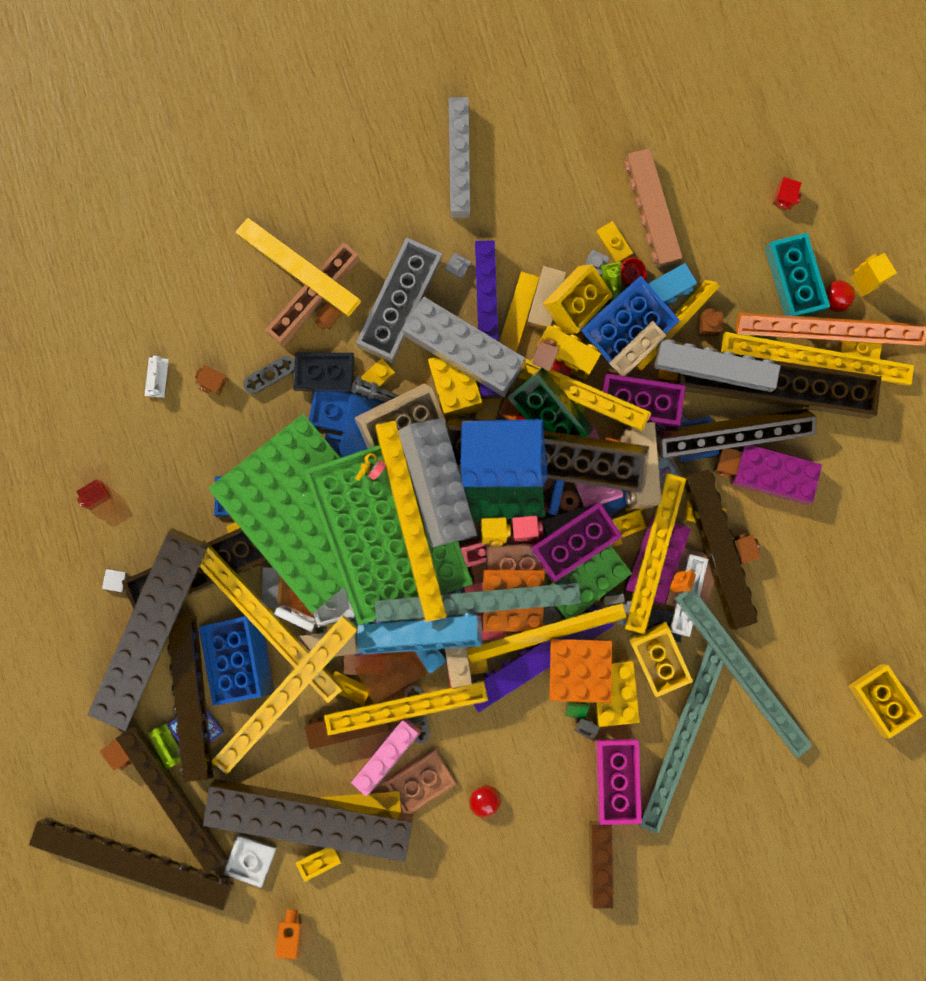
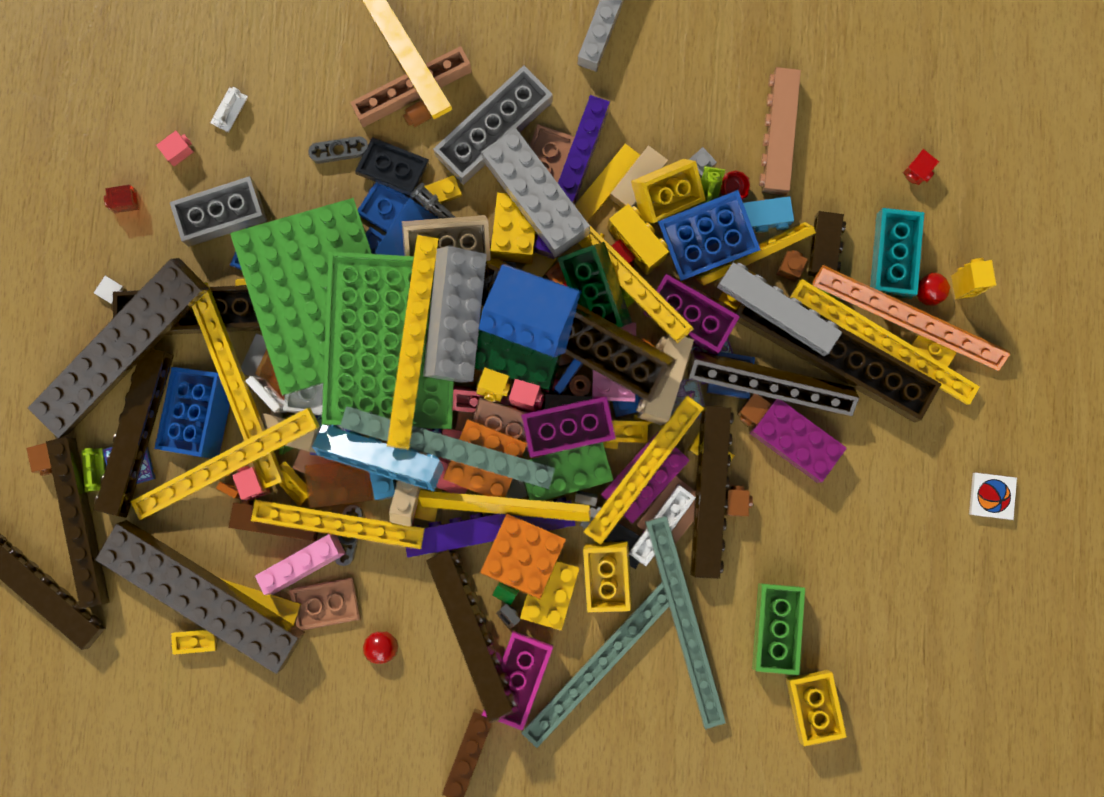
camera: 25 degrees right, 0 degrees up
(123, 430) = (175, 148): none -> coral brick
(185, 472) = (218, 211): none -> light grey brick
(210, 380) = (279, 132): dark orange brick -> none
(250, 860) = (129, 613): white tile -> none
(288, 946) = (131, 710): orange torso -> none
(295, 715) = (228, 489): none -> orange tile
(312, 702) = (249, 484): none -> coral brick
(365, 467) = (390, 271): yellow hand -> none
(377, 469) = (400, 278): coral tile -> none
(458, 266) = (565, 114): light grey tile -> none
(459, 300) = (551, 148): none -> nougat tile
(546, 353) = (613, 230): brick -> none
(564, 758) = (472, 636): none -> dark brown brick
(614, 242) = (729, 150): yellow plate -> none
(637, 349) = (707, 262): tan tile -> none
(683, 581) = (660, 508): orange plate -> none
(732, 291) = (826, 242): none -> dark brown brick
(825, 645) = (778, 629): none -> bright green brick

